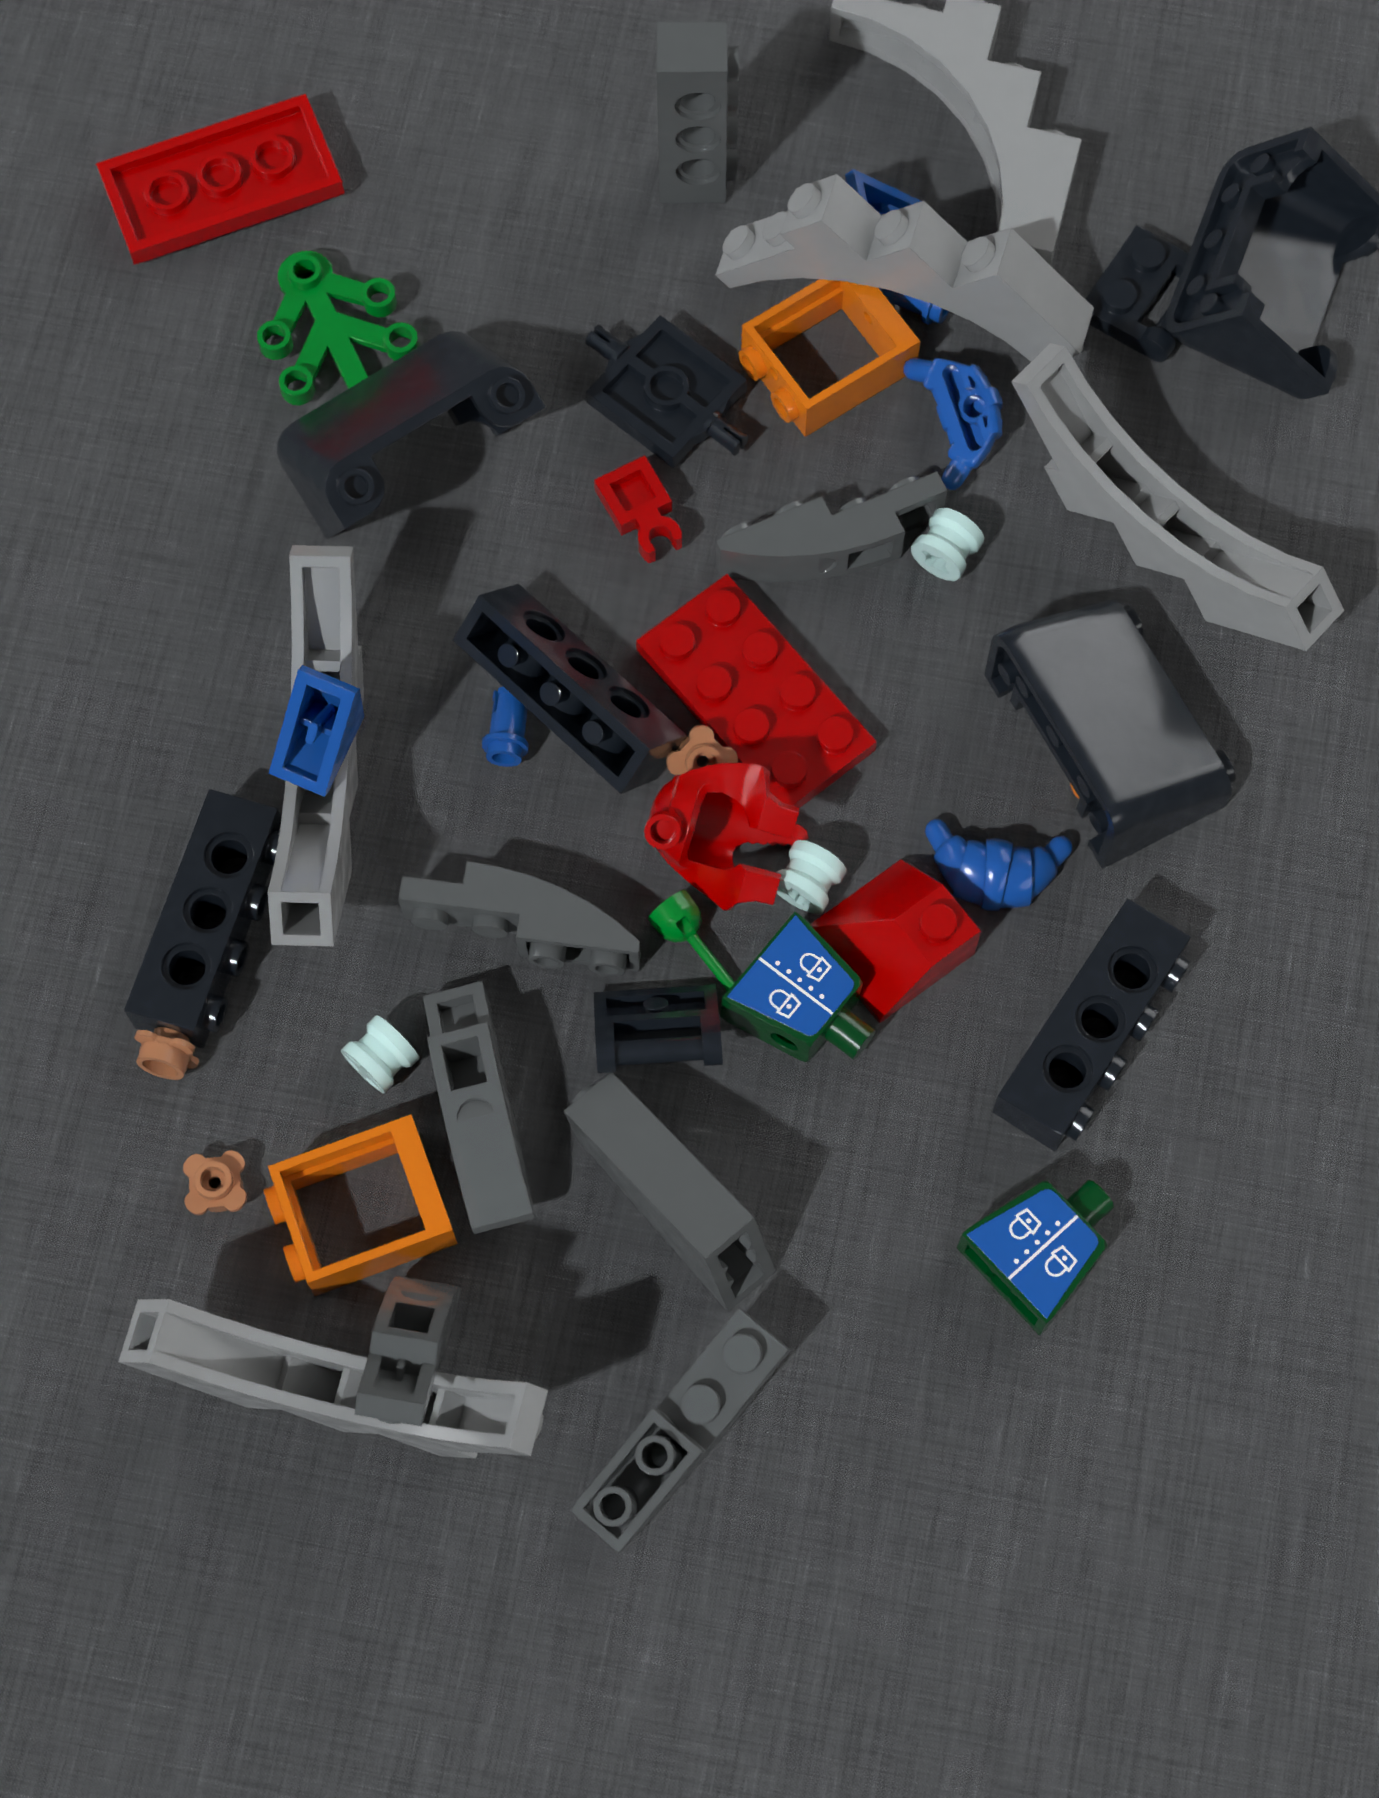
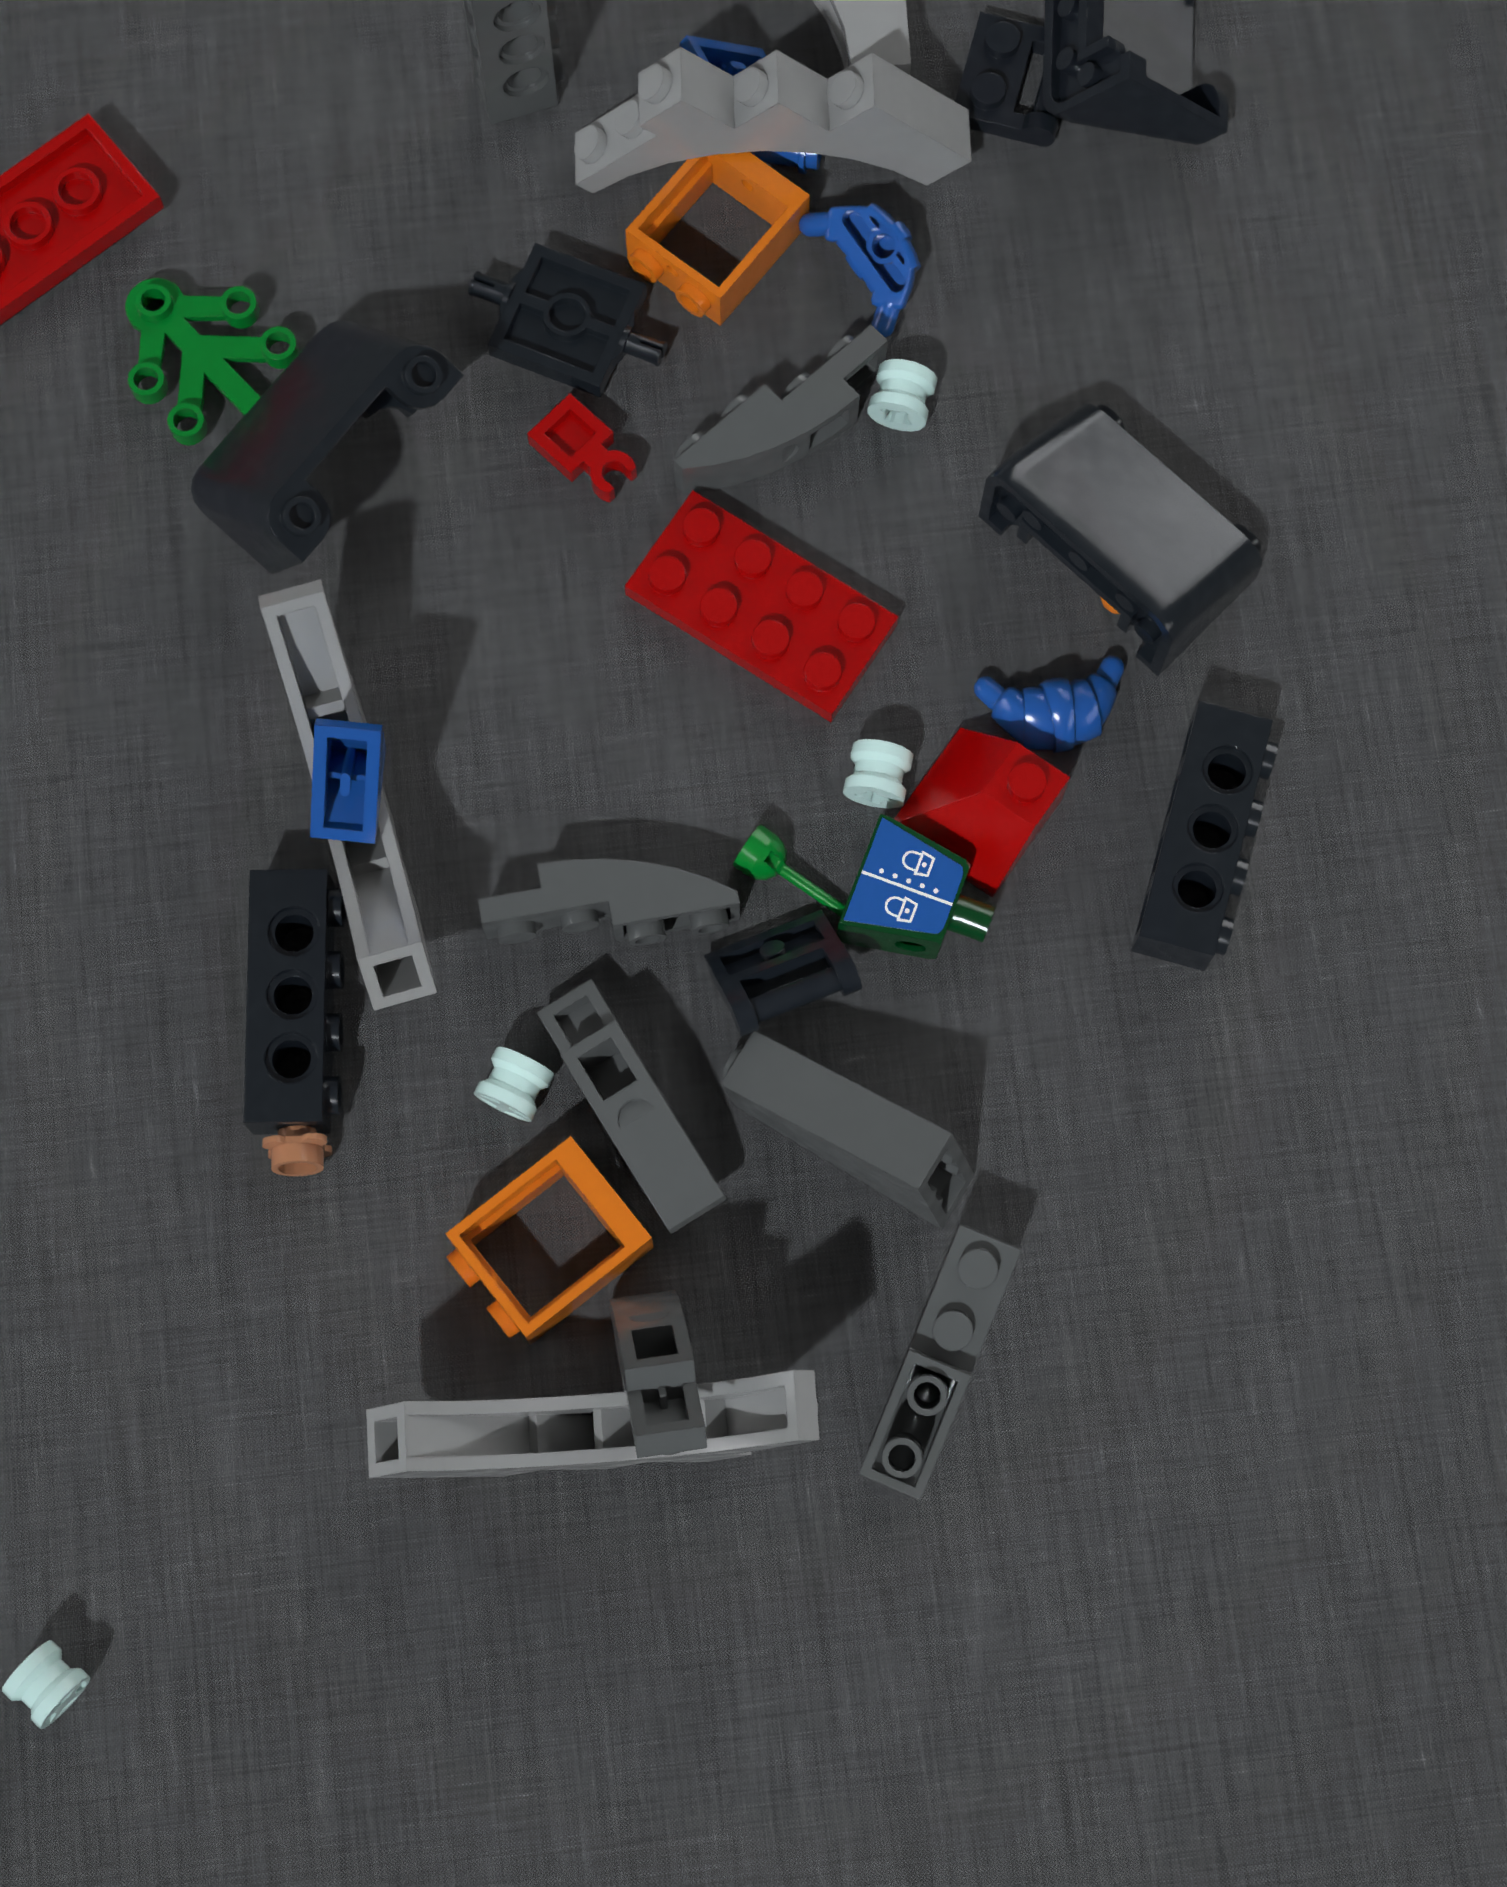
camera: 20 degrees left, 5 degrees up
(227, 1196) = (409, 1273): nougat plate -> none
(506, 740) = (528, 728): blue pin -> none
(568, 687) = (576, 654): black brick -> none
(697, 744) = (716, 685): nougat plate -> none
(709, 813) = (761, 737): red piece -> none
(1039, 1248) = (1226, 1072): torso -> none
(1163, 526) = (1110, 314): light grey arch -> none

